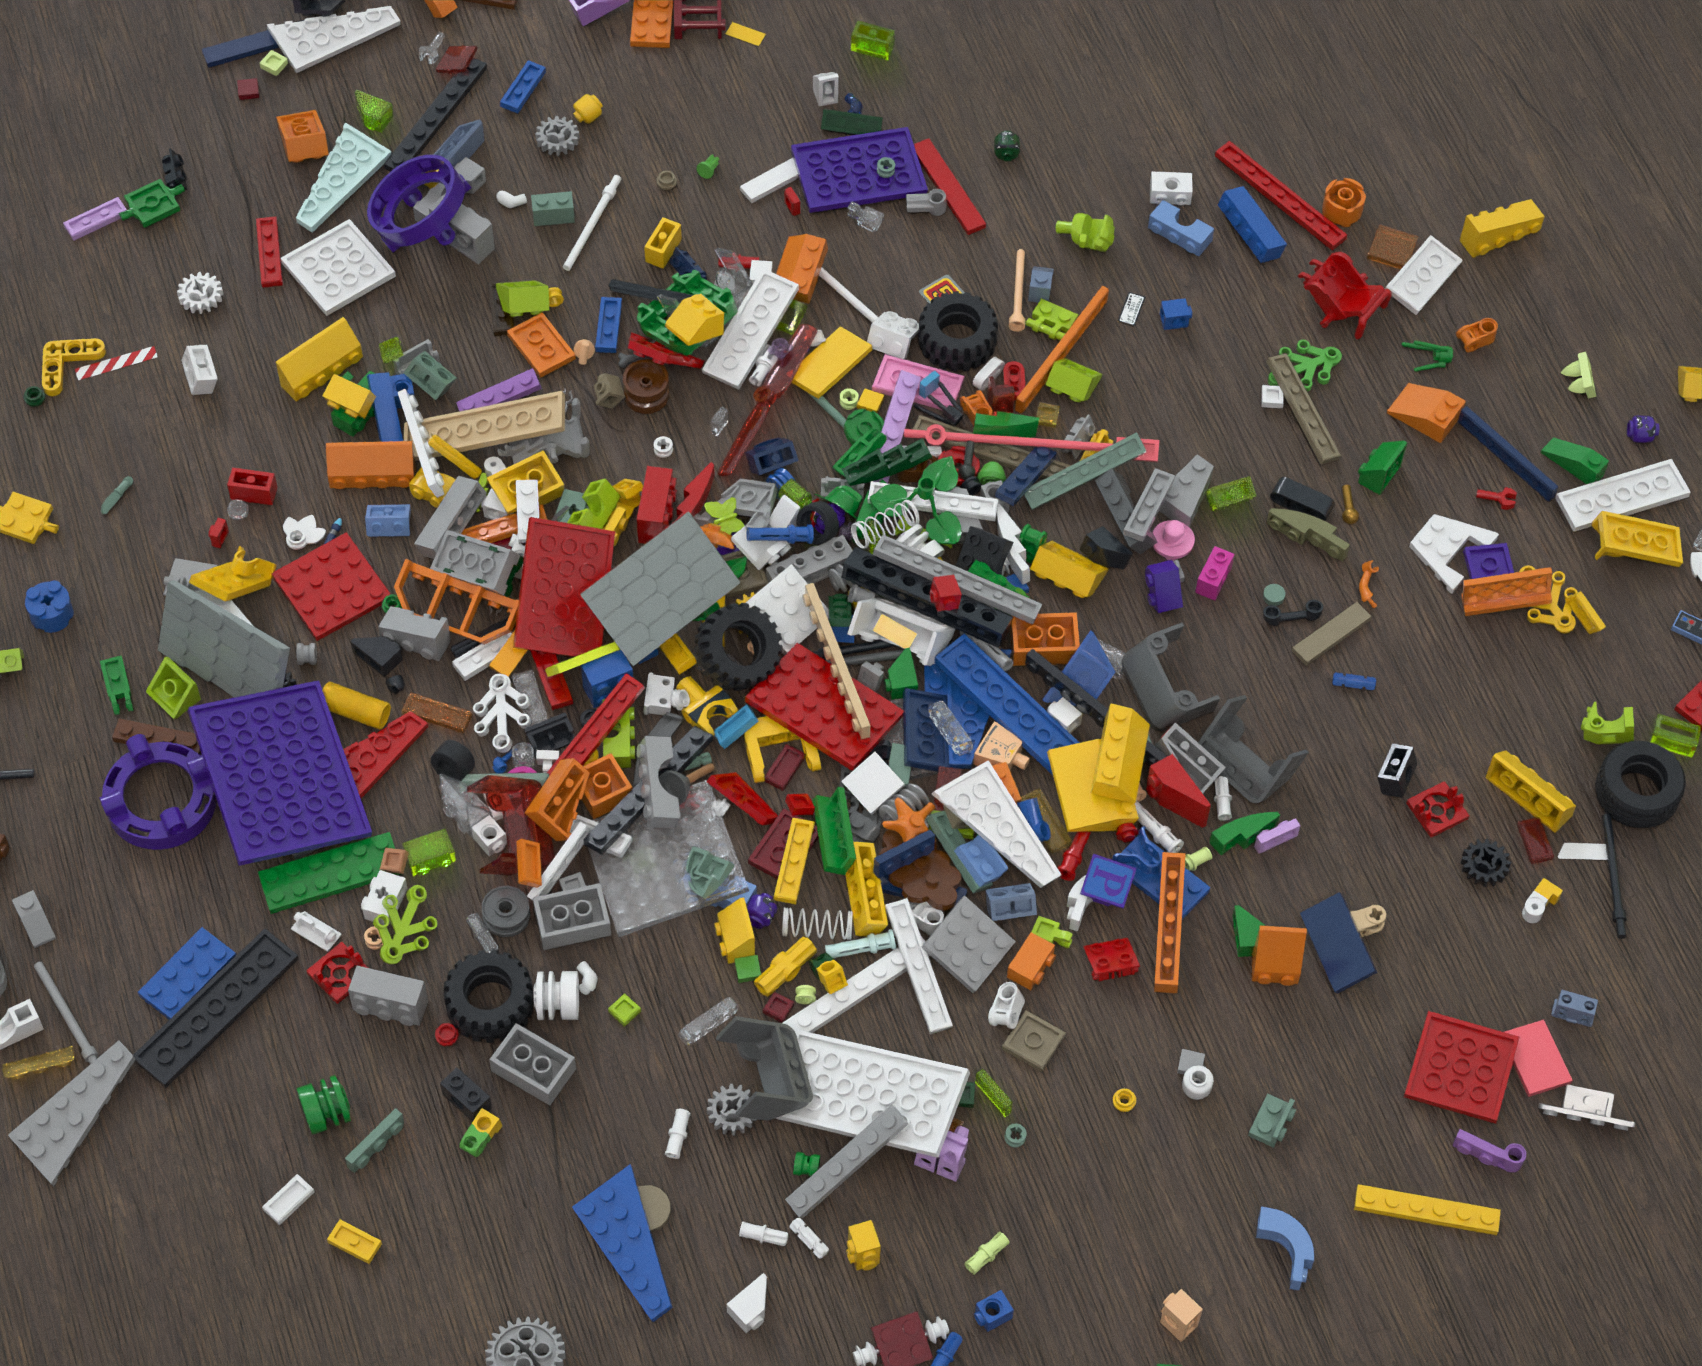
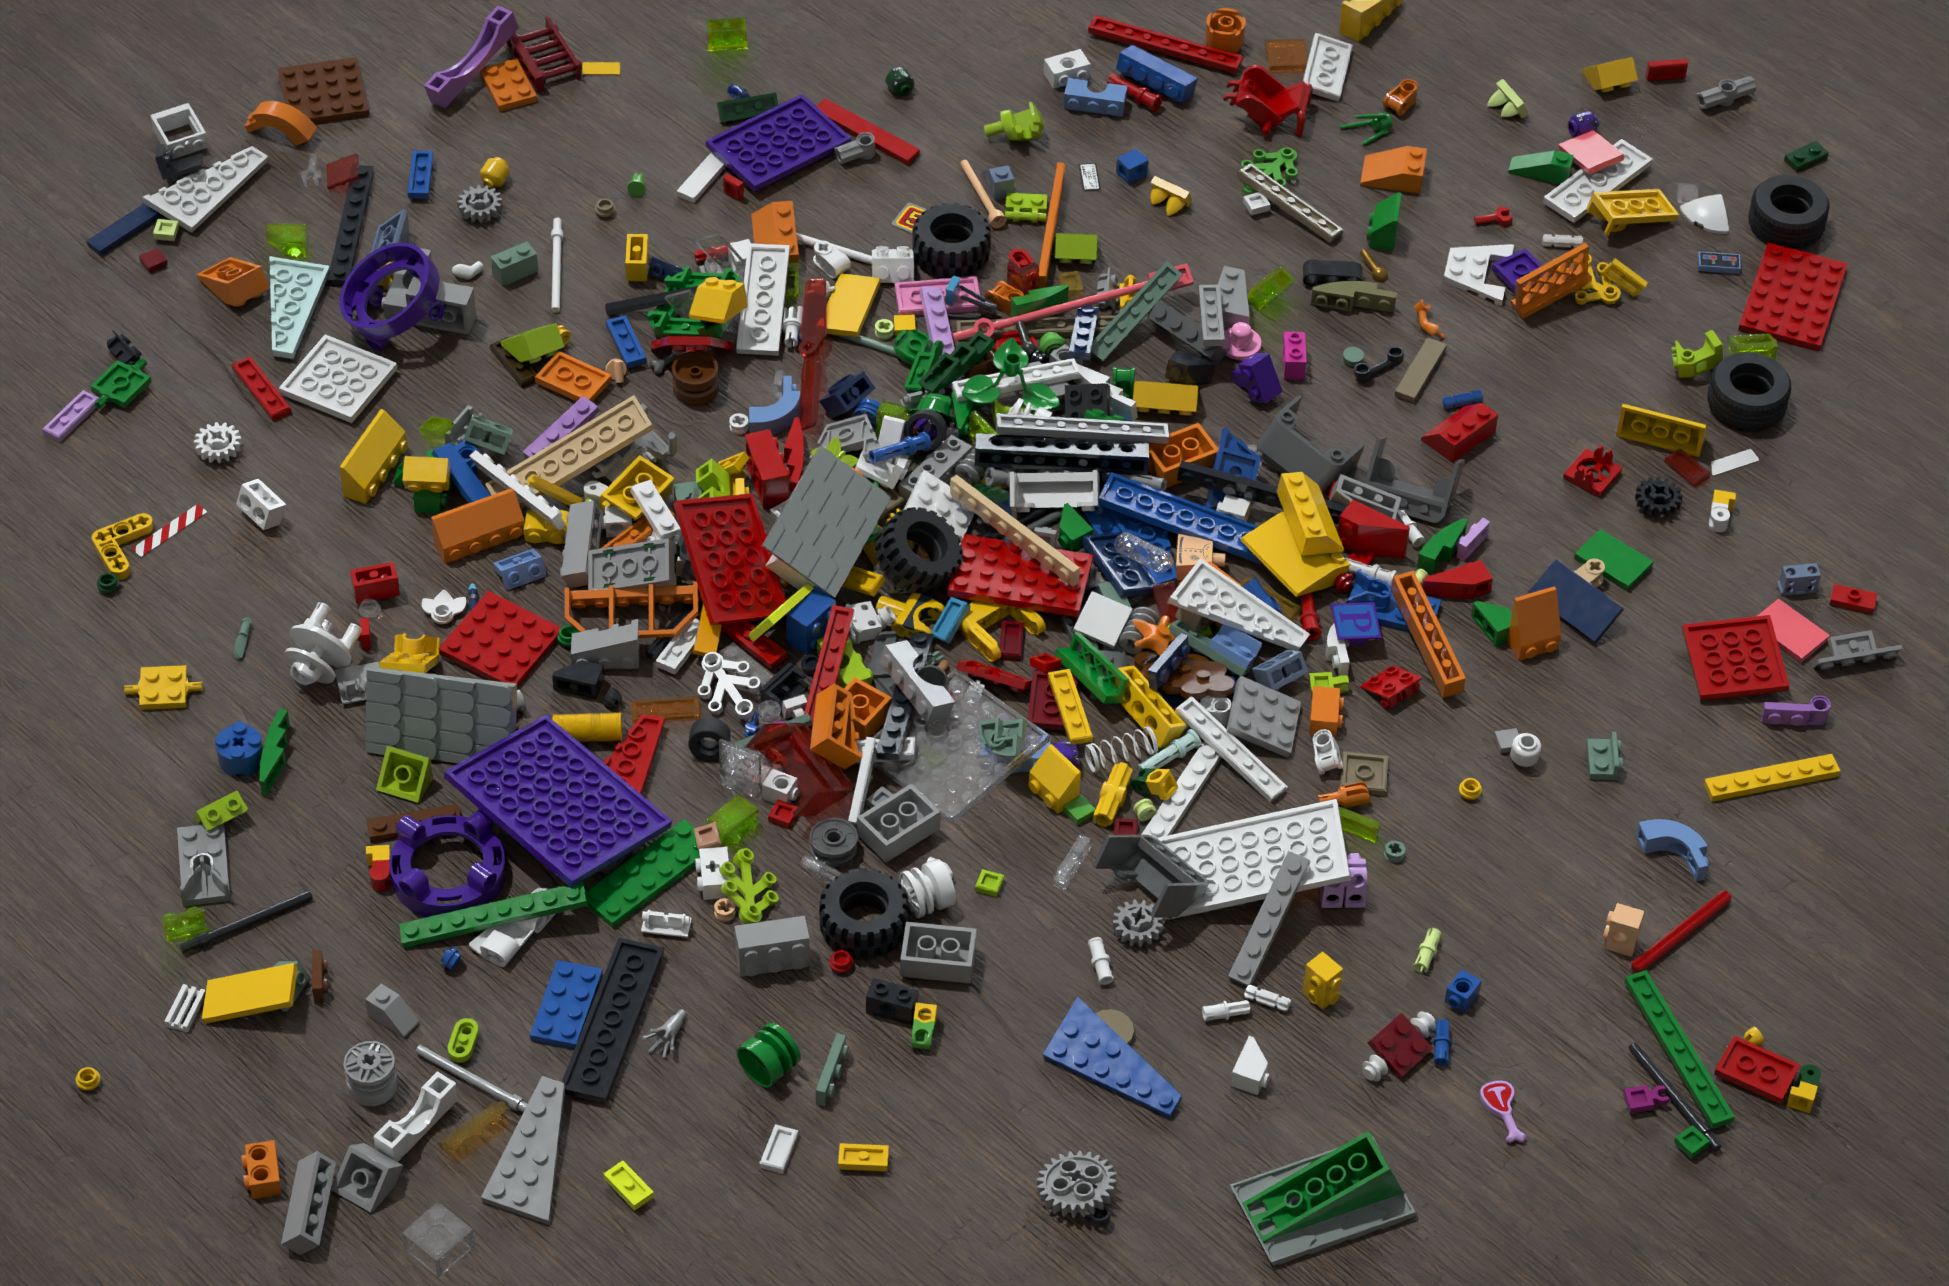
camera: 25 degrees left, 10 degrees down
(73, 623) = (273, 752): none -> green slope
(77, 973) = (461, 1042): none -> lime plate
(97, 776) = (379, 859): none -> red leg
(112, 887) = (450, 958): none -> blue plate
(116, 682) = (345, 791): green hinge -> none
(137, 1179) = (628, 1185): none -> neon yellow plate
(168, 531) = (319, 648): none -> white piece
(168, 861) = (492, 915): none -> green plate
(184, 879) = (504, 941): none -> white panel
(256, 1040) = (667, 1032): none -> light grey piece
(315, 971) = (705, 963): red piece -> none
(478, 860) = (782, 814): none -> red tile
(529, 863) = (838, 789): orange tile -> none
(608, 390) = (658, 390): dark tan brick -> none
(699, 454) = (779, 415): none -> medium blue arch
(778, 344) = (802, 304): clear purple plate -> none
(806, 1164) = (1230, 941): green wheel -> none
(826, 88) = (707, 85): white slope -> none
(838, 308) = (830, 259): none -> white piece
(864, 530) = (985, 396): white piece -> none
(867, 218) = (809, 179): clear plate -> none
(885, 173) = (804, 131): sand green bush -> none
(894, 631) = (1046, 495): yellow sticker -> none
(945, 593) = (1082, 439): red brick -> none
(992, 368) = (997, 266): white beam -> none
(1000, 1059) = (1349, 795): none -> orange arm
(1161, 813) = (1365, 558): none -> red tile
(1198, 364) = (1177, 196): none -> yellow tile
(1226, 241) = (1141, 95): none -> red pin
(1242, 1337) = (1681, 931): none -> red axle
(1243, 878) = (1461, 582): none -> red slope
(1332, 715) = (1462, 431): none -> red slope
(1397, 770) = (1544, 452): black brick -> none
(1406, 911) = (1622, 563): none -> green tile
(1508, 454) = (1483, 180): dark blue tile -> none
(1551, 547) = (1562, 240): none -> white axle
(1619, 914) = (1788, 497): black bar -> none
(1620, 1049) = (1853, 598): none -> red plate
(1631, 462) = (1592, 152): none -> tile

